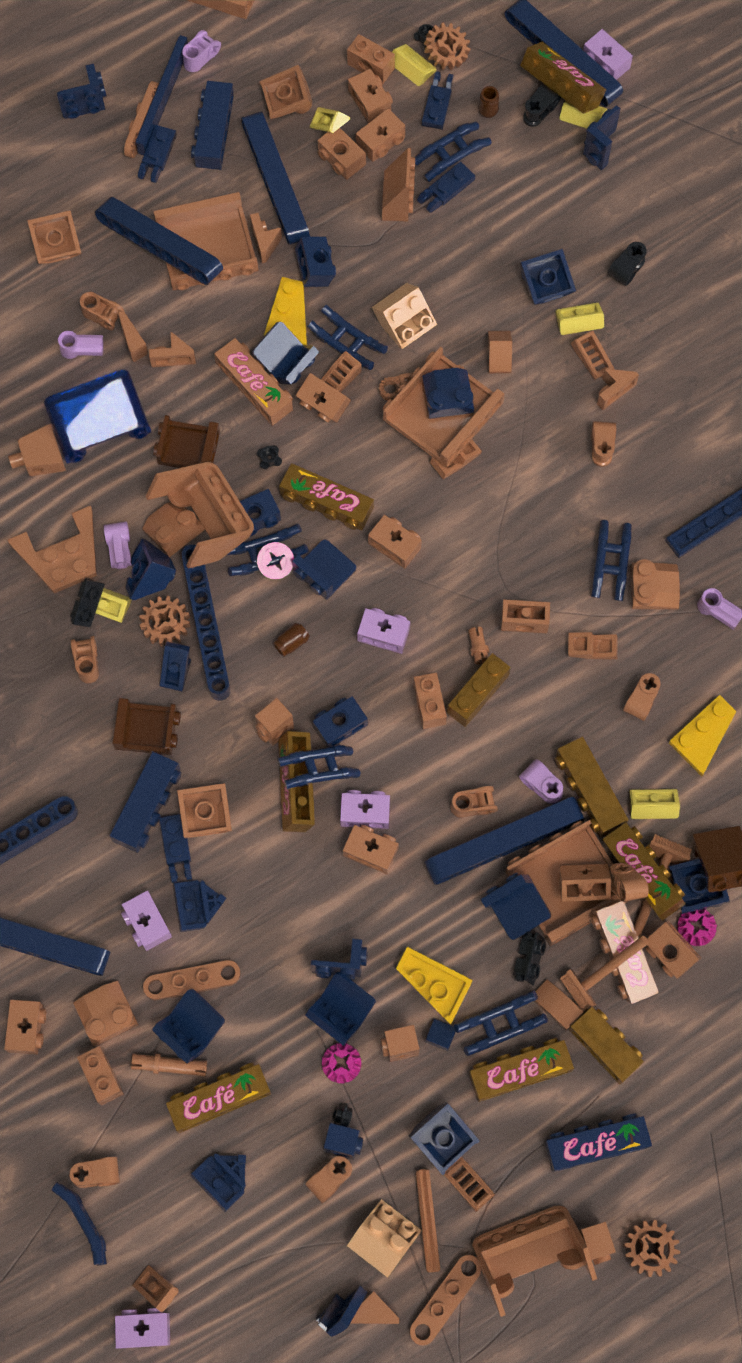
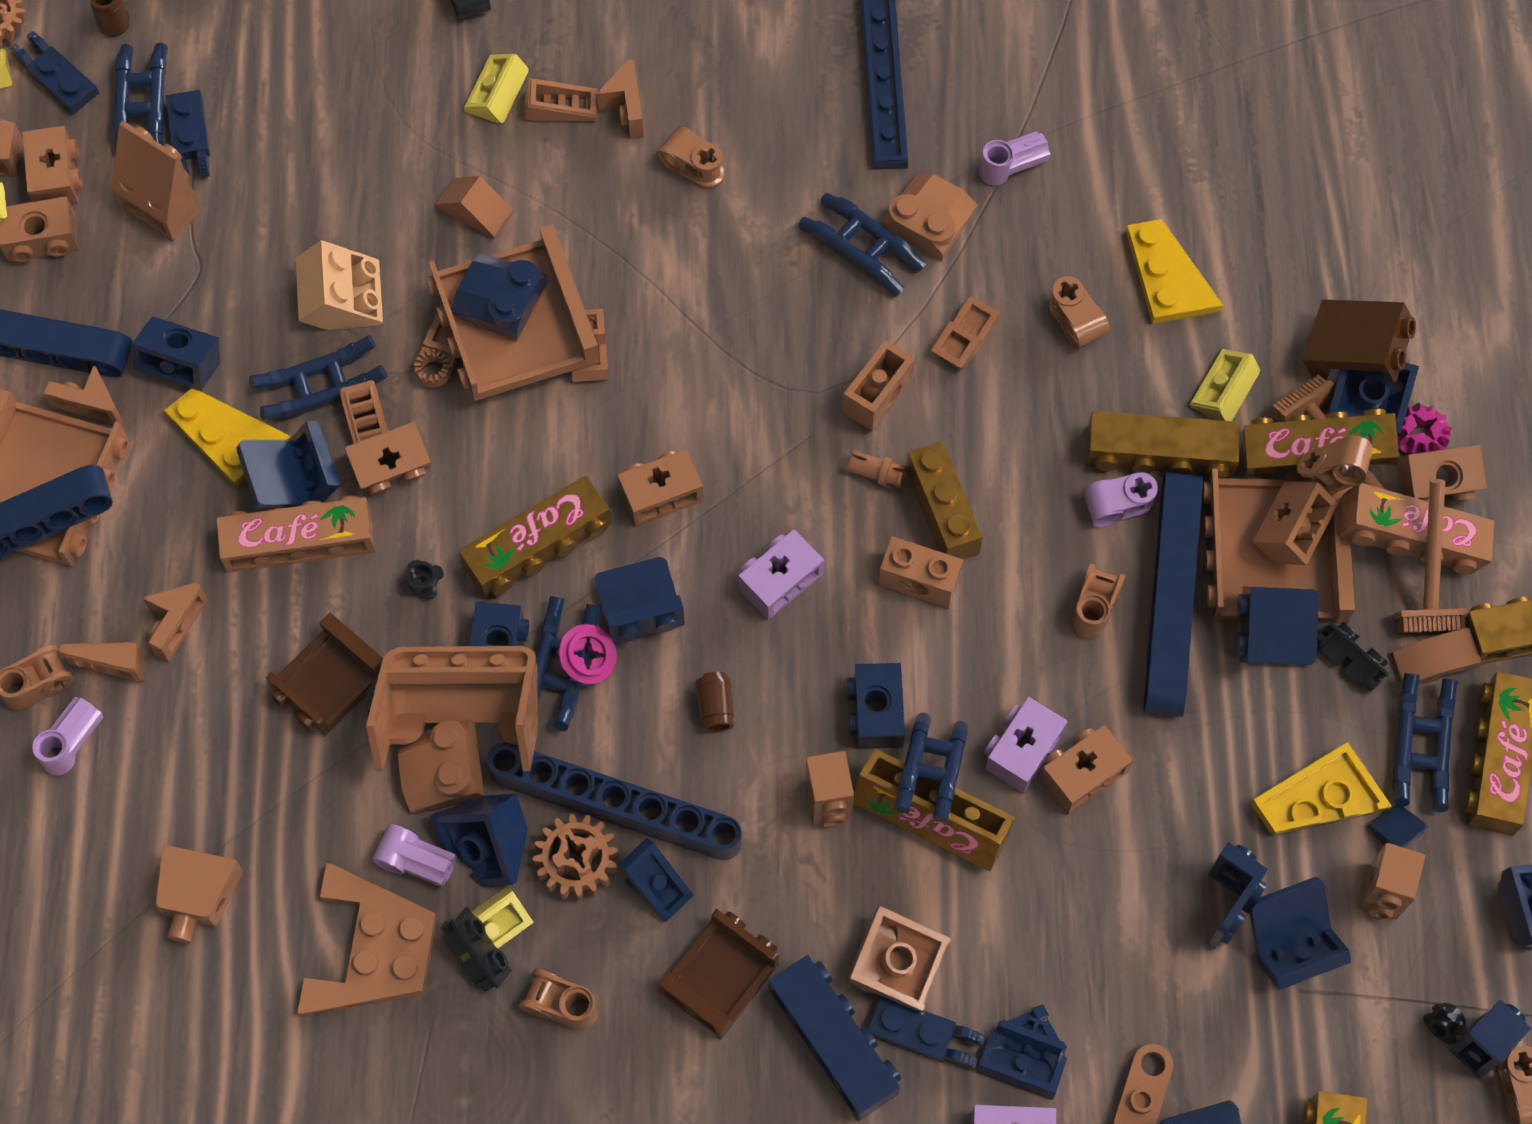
camera: 60 degrees left, 5 degrees down
(96, 414) = (196, 773): clear blue windscreen -> none
(341, 1075) = (1359, 998): dark pink gear -> none
(547, 277) = (414, 87): dark blue slope -> none

